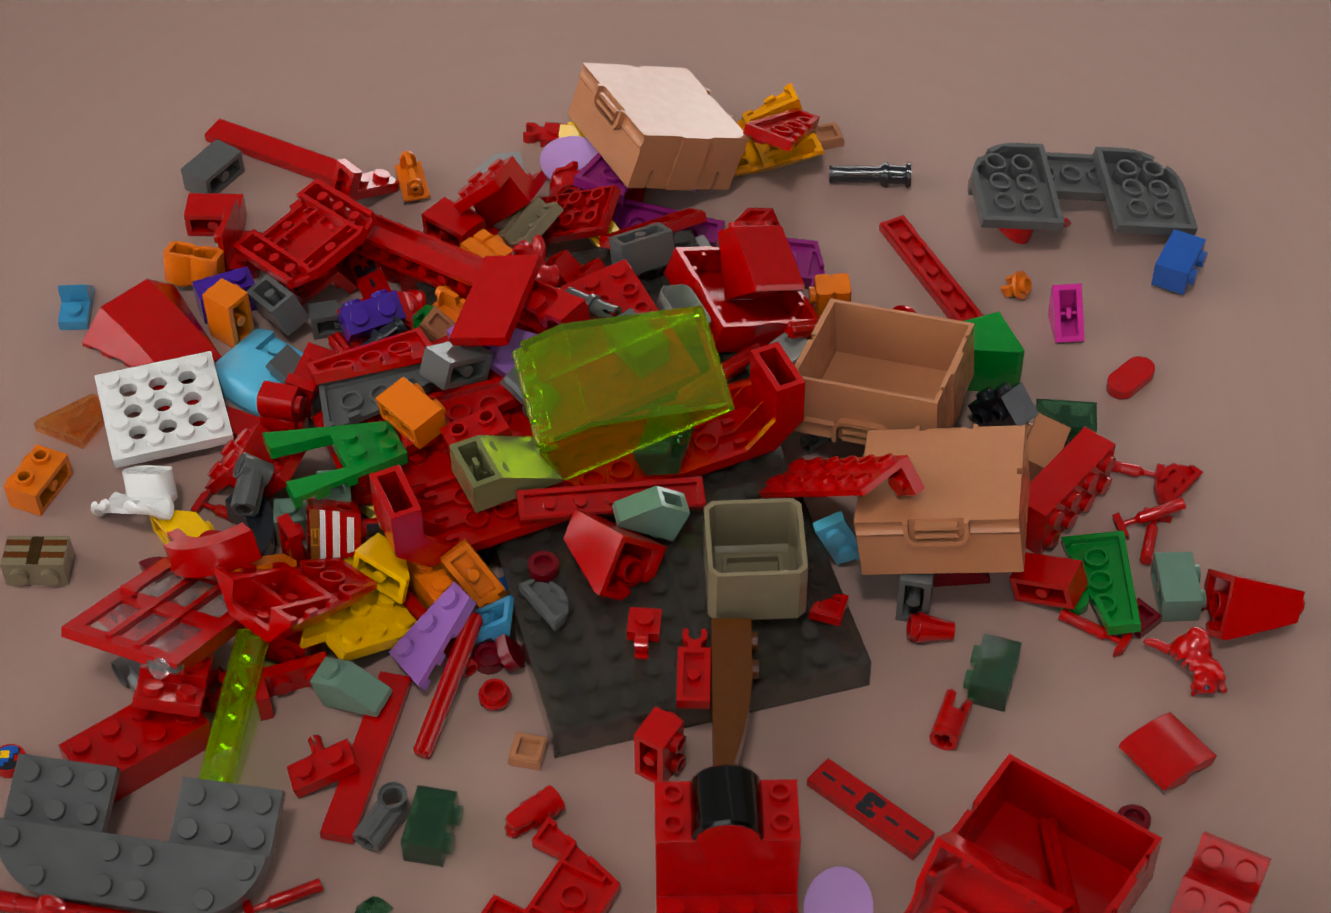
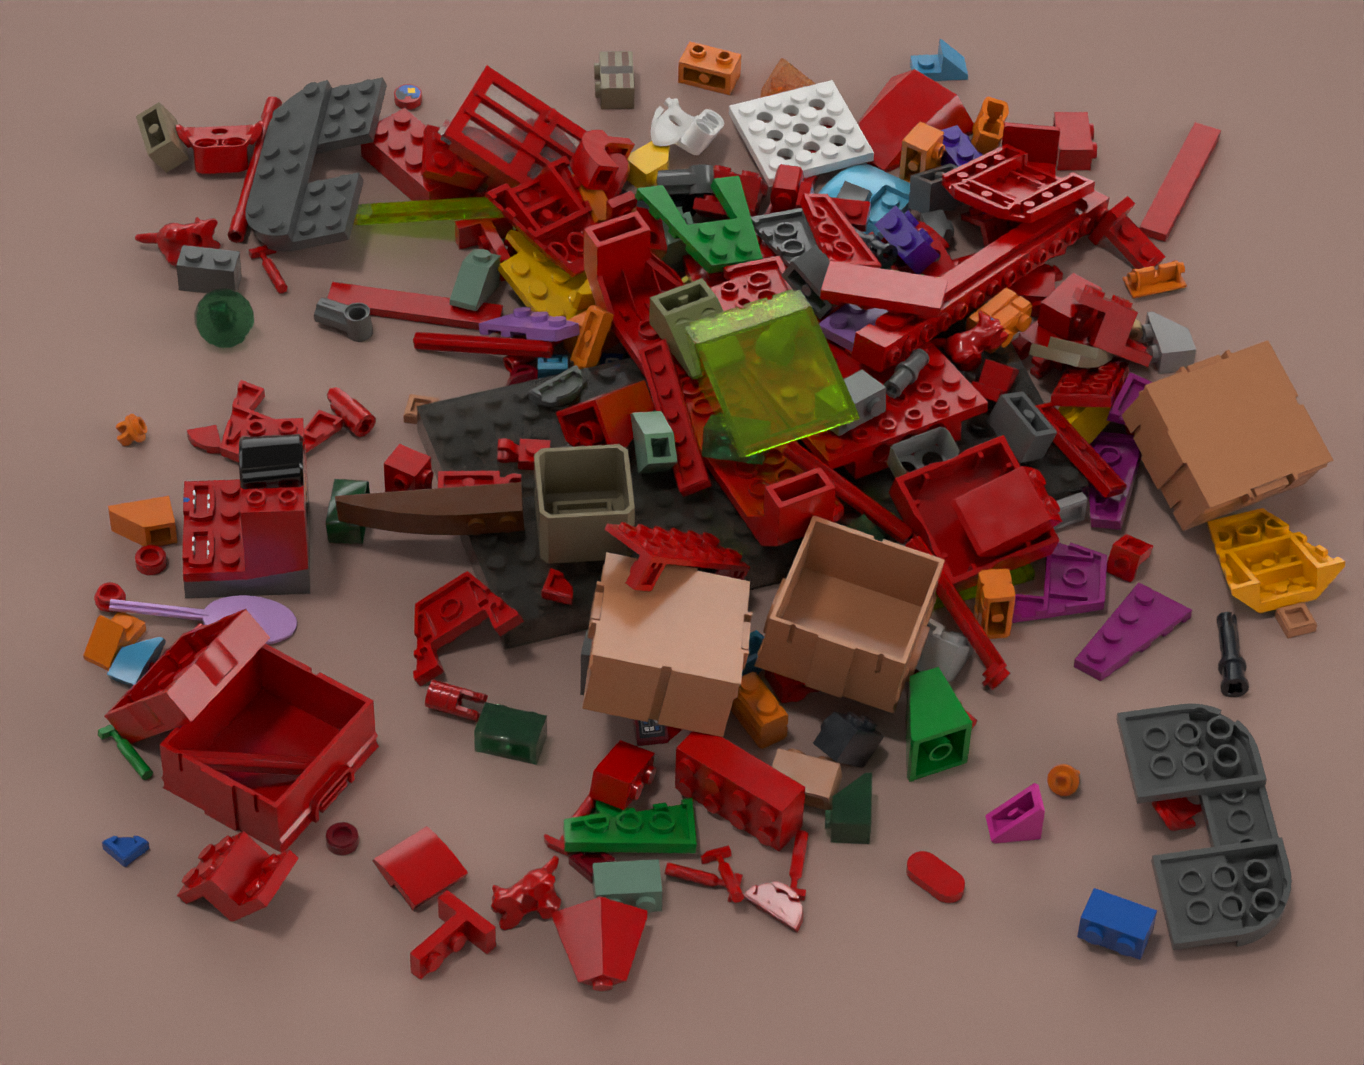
camera: 85 degrees right, 0 degrees up
(213, 168) = (1138, 132): dark grey brick -> none
(322, 766) = (398, 277): red plate -> none
(412, 412) = (753, 257): orange brick -> none
(431, 826) = (335, 346): clear green brick -> none
(494, 694) = (480, 380): red plate -> none
(543, 566) = (600, 382): dark red tile -> none
(782, 129) = (1247, 546): red wing -> none
(841, 712) = (452, 612): none -> red wing
(842, 234) = (1130, 629): none -> magenta wing
(870, 809) = (361, 639): red tile -> none
(928, 269) = (1077, 709): red tile -> none
(928, 628) = (566, 686): red cone -> none
(1254, 724) = (460, 925): none -> red bracket

